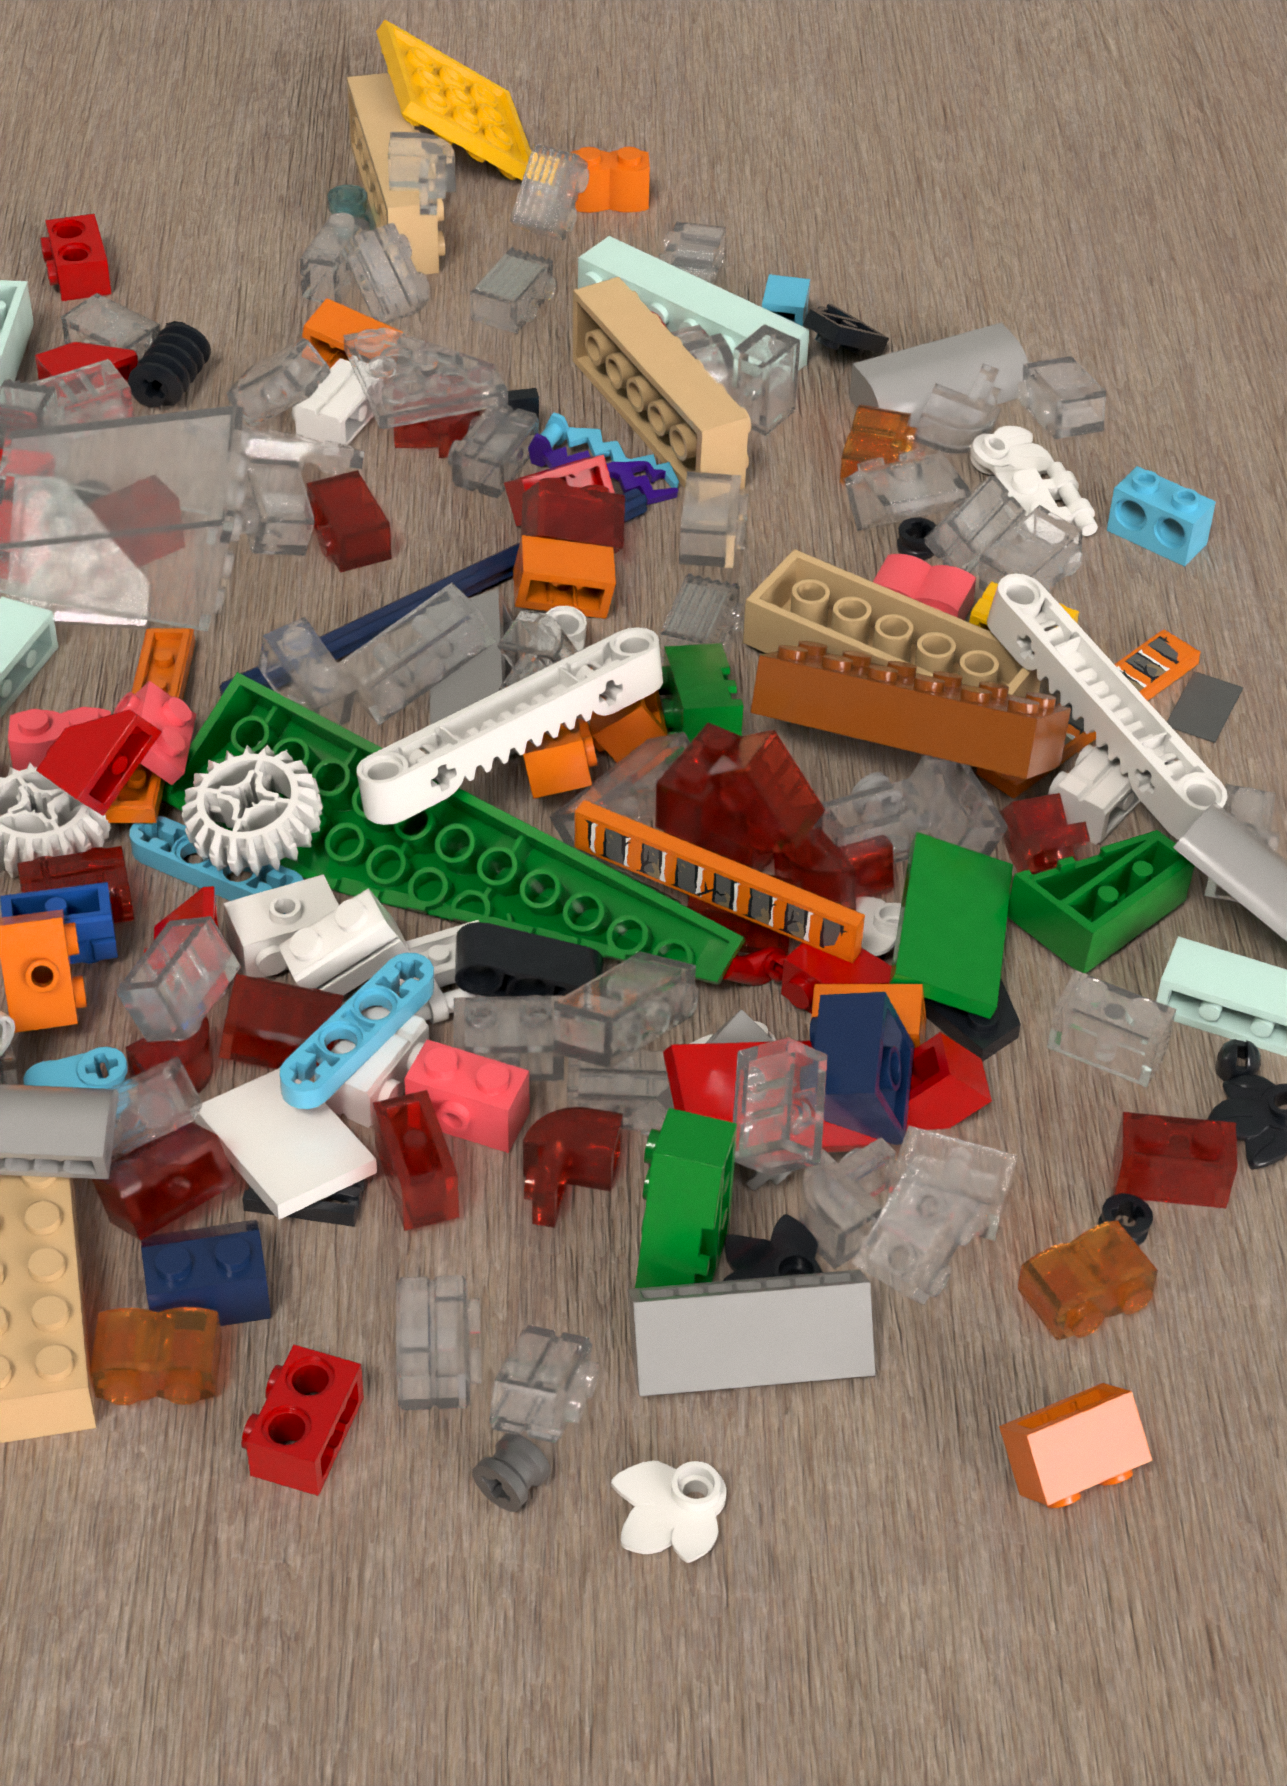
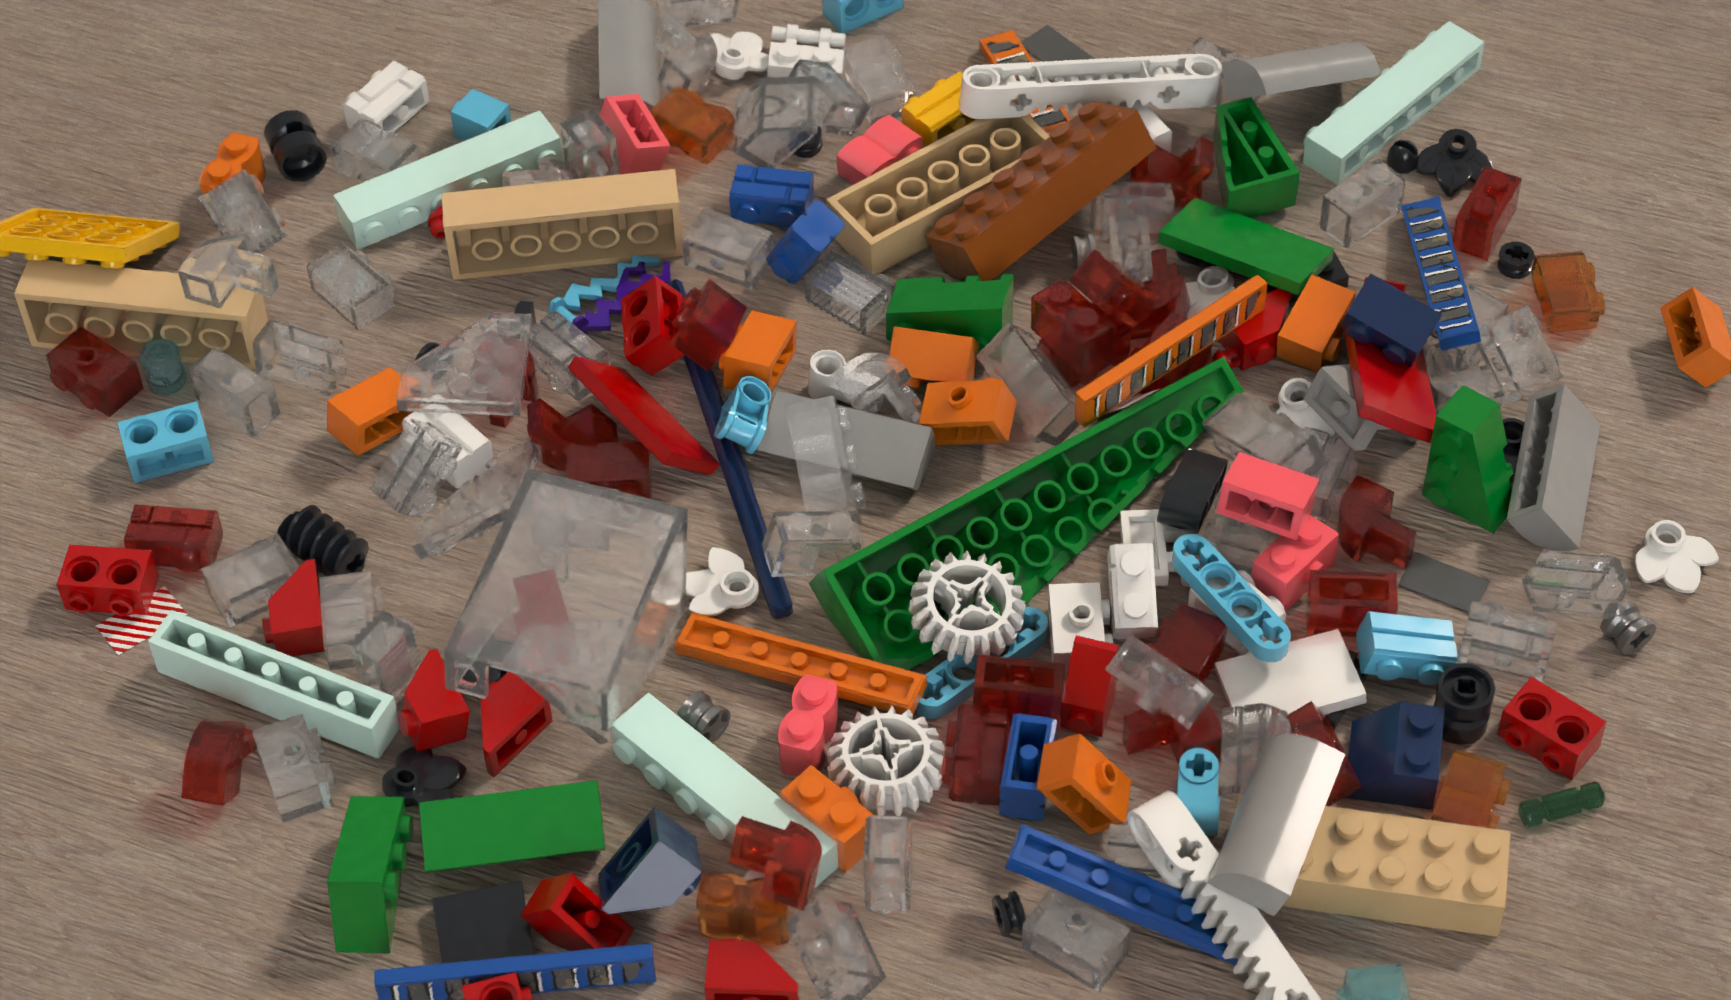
camera: 65 degrees left, 5 degrees up
(48, 298) = (130, 630): none -> sticker
(52, 671) = (704, 716): none -> flat silver wheel
(99, 757) = (891, 681): red slope -> none
(143, 277) = (175, 535): none -> clear red brick
(157, 879) = (1019, 685): none -> clear red brick
(175, 720) = (843, 656): coral bracket -> none
(194, 1464) = (1561, 804): none -> clear green axle
(236, 643) = (715, 587): none -> white plate
(257, 240) = (165, 442): none -> medium azure brick
(301, 1305) = (1467, 698): none -> black wheel
(317, 171) = (94, 372): none -> clear red brick
(369, 1231) = (1405, 647): none -> medium azure brick
(374, 455) = (555, 431): none -> clear red brick
(398, 777) = (981, 411): white gear -> none
(427, 514) = (643, 416): none -> red tile
(464, 573) = (745, 414): none -> medium azure piece
(510, 1009) = (1267, 495): none -> coral brick
(525, 1269) = (1443, 582): none -> dark grey sticker
(672, 199) = (295, 145): none -> black wheel
(728, 551) = (804, 242): none -> blue brick
(769, 243) = (388, 98): none -> white brick
(779, 1106) = (1428, 368): clear brick -> none
(804, 522) = (770, 195): none -> blue brick
(817, 404) = (638, 136): none -> coral brick
(840, 328) = (536, 94): black wing -> none
(1012, 1123) = (1441, 273): none -> tile

